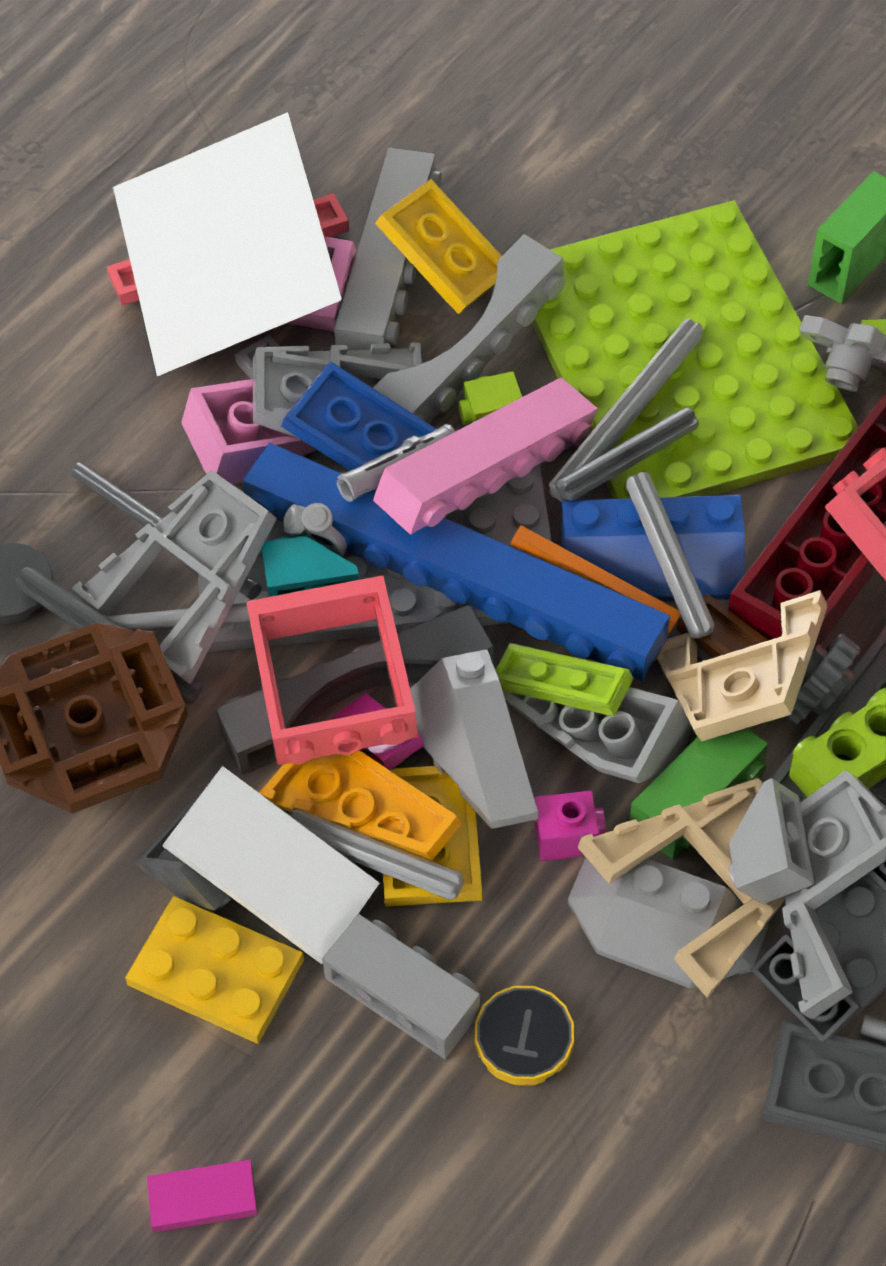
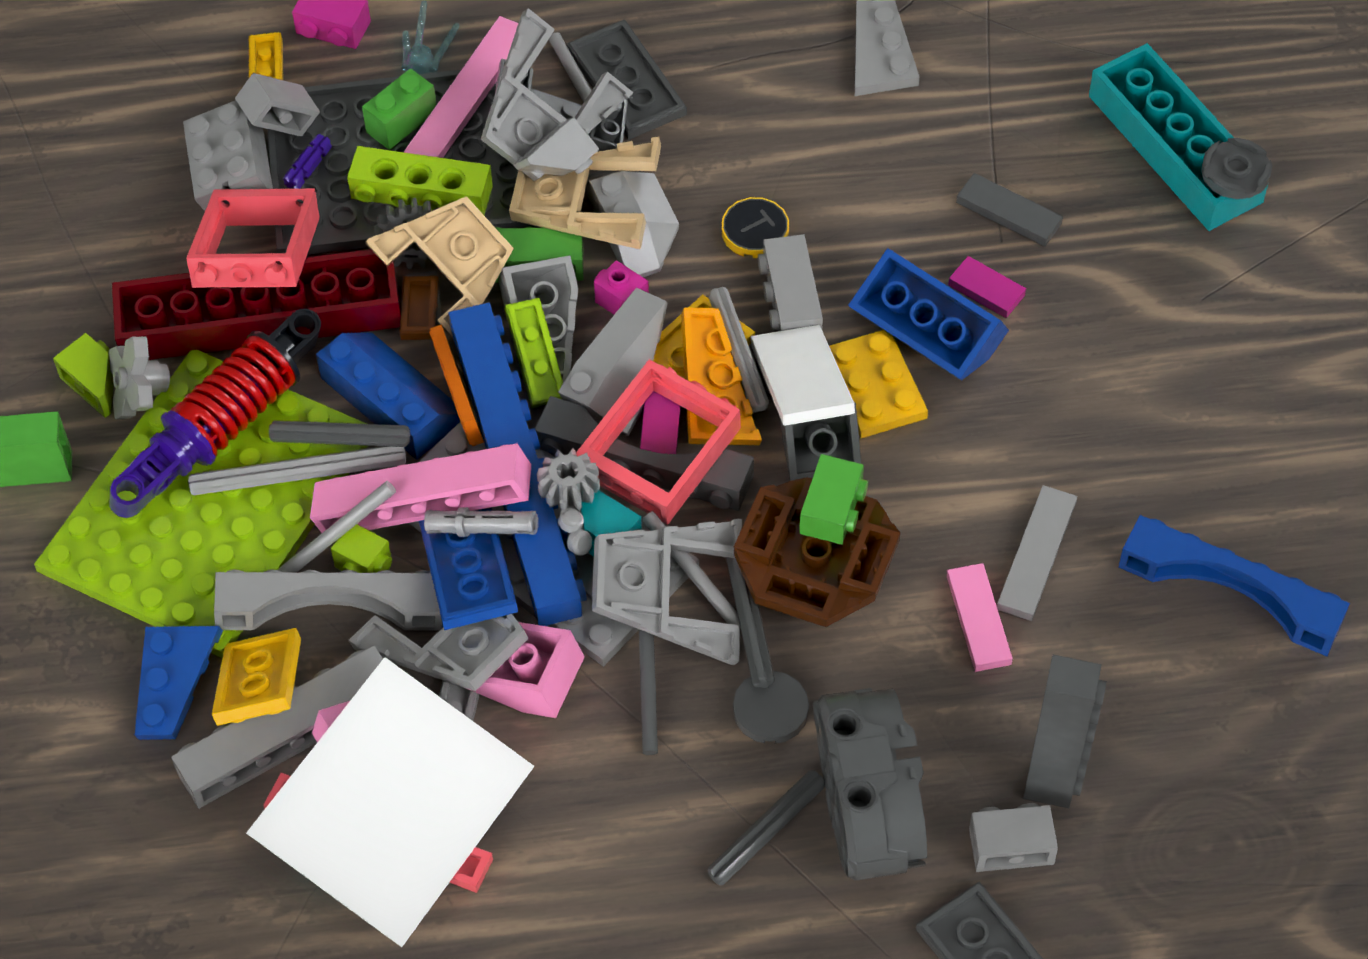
camera: 135 degrees left, 0 degrees up
(100, 746) = (832, 499): none -> bright green brick
(218, 1078) = (928, 315): none -> blue slope
(357, 542) = (568, 480): none -> light grey gear
(519, 208) = (169, 674): none -> blue wing
(520, 380) = (339, 528): none -> light grey bar
(670, 555) = (401, 348): light grey axle -> none
(745, 380) = (217, 410): none -> piece

